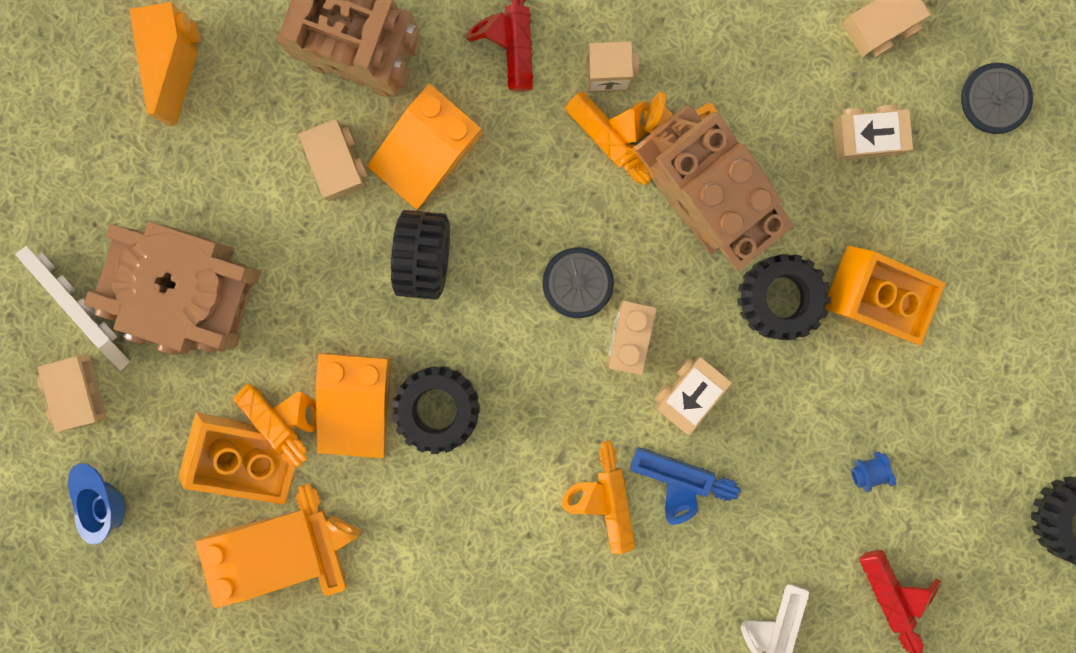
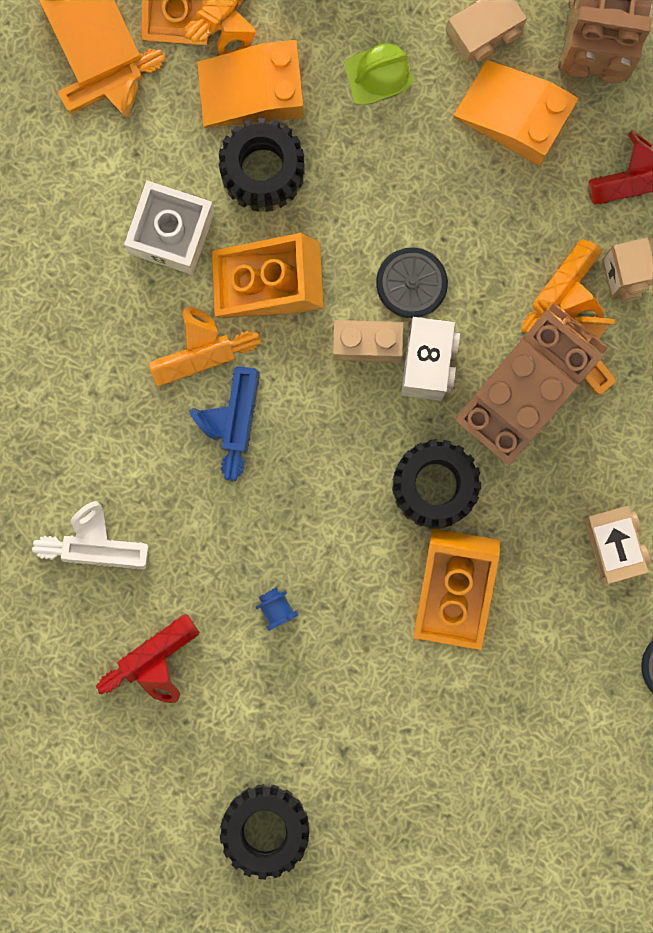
camera: 80 degrees right, 5 degrees down
(361, 276) = (378, 73): none -> lime piece
(420, 254) = (411, 119): black tyre -> none
(484, 512) = (169, 227): none -> white brick
(549, 422) = (268, 277): none -> light orange slope
(664, 282) = (428, 359): none -> white brick
(691, 394) = (321, 411): brick -> none

